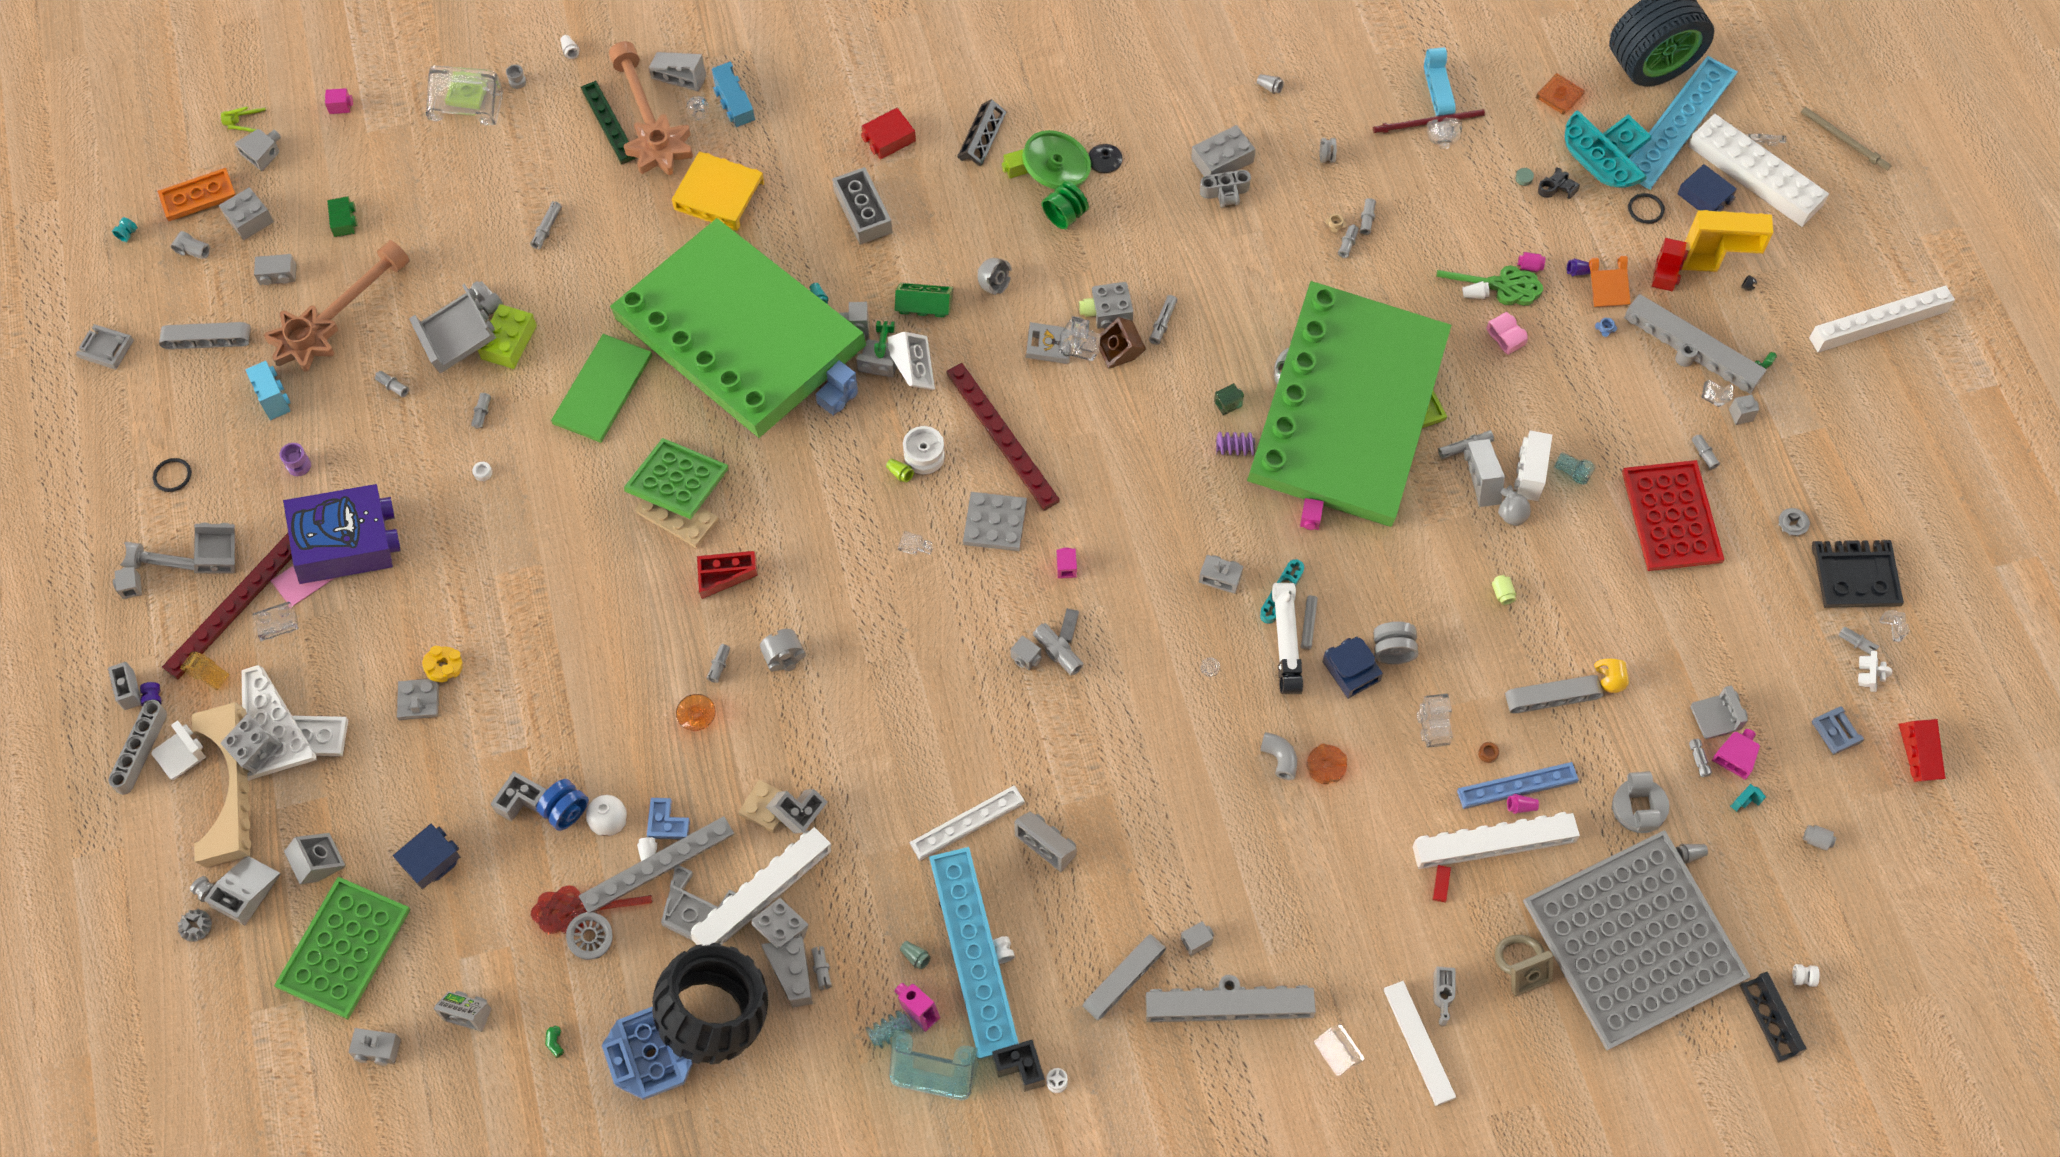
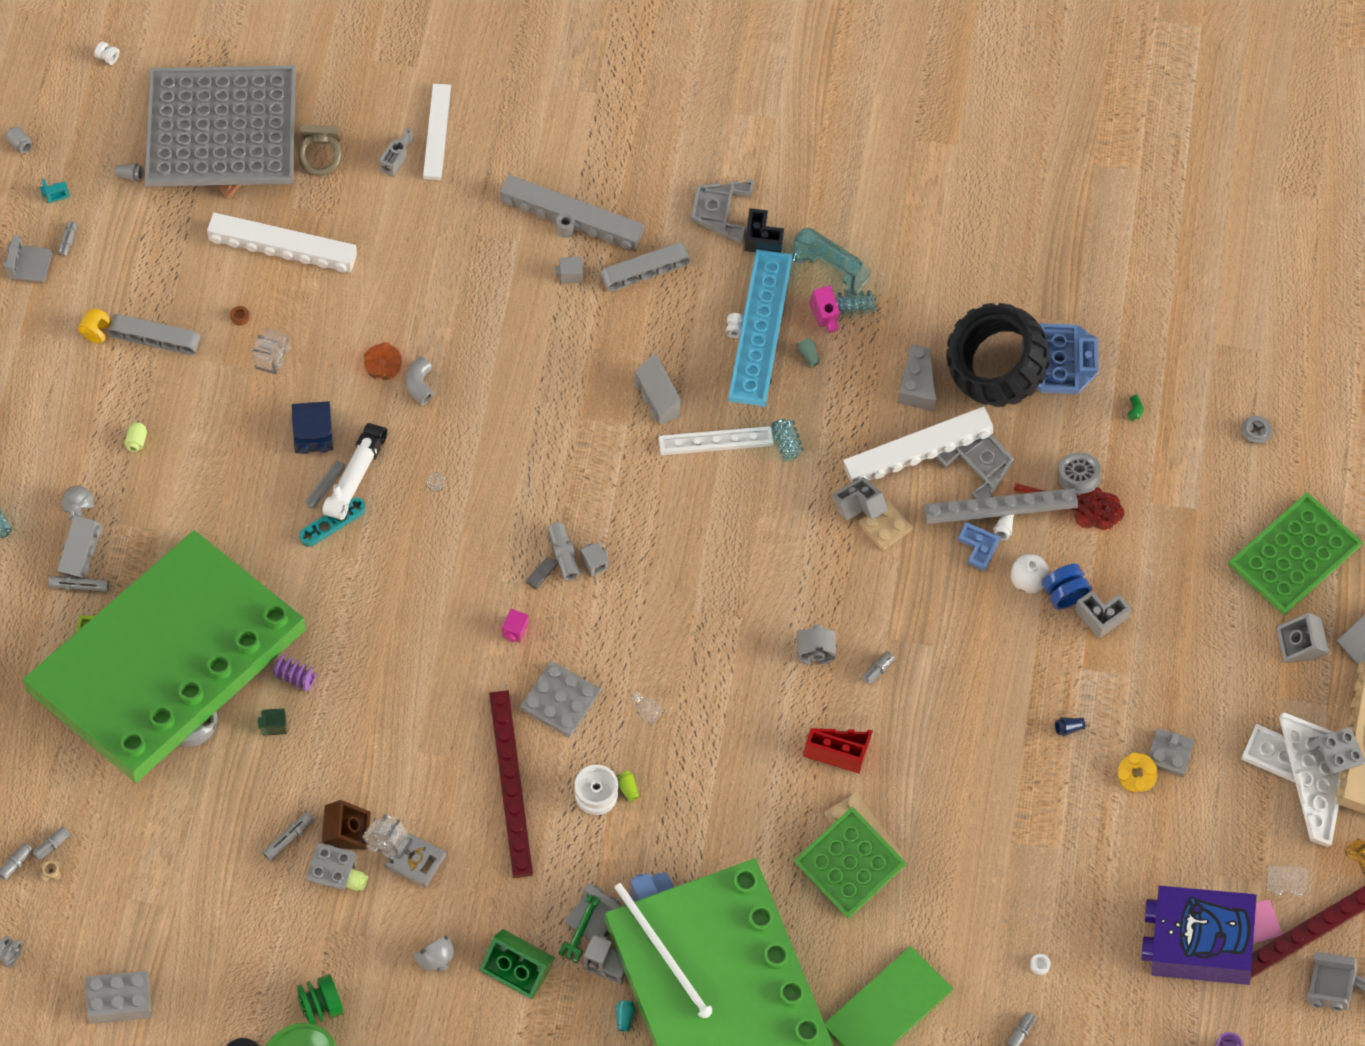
camera: 160 degrees left, 0 degrees up
(374, 1046) = (1288, 461): light grey brick -> none
(419, 1062) = (1259, 423): none -> light grey gear
(428, 856) = (1201, 594): dark blue brick -> none
(463, 1010) = (1205, 454): light grey slope -> none
(520, 682) = (1067, 726): none -> dark blue cone
(695, 704) = (920, 621): clear orange dish -> none
(746, 295) = (705, 1011): none -> white bar
(780, 924) = (913, 409): light grey bracket -> none
(821, 968) = (891, 374): light grey pin -> none
(895, 849) = (787, 439): none -> clear light blue piece
(912, 358) = (563, 888): white slope -> none
(1054, 1077) = (735, 212): white wheel -> none
(1088, 1082) = (713, 206): none -> light grey wing
(1221, 573) = (379, 557): light grey brick -> none
(1225, 186) = (140, 948): light grey piece -> none
(1311, 514) = (266, 573): dark pink brick -> none
(1338, 1049) = (502, 149): clear panel -> none
(1395, 642) = (264, 423): light grey wheel -> none
(1441, 883) = (347, 231): red piece -> none
(1518, 784) = (233, 280): medium blue tile -> none
(1521, 804) = (242, 262): dark pink cone -> none
(1533, 465) = (34, 528): white brick -> none
(1643, 821) = (137, 232): light grey piece -> none
(1738, 753) = (35, 225): dark pink torso -> none
(1780, 1014) = (147, 36): black fence -> none

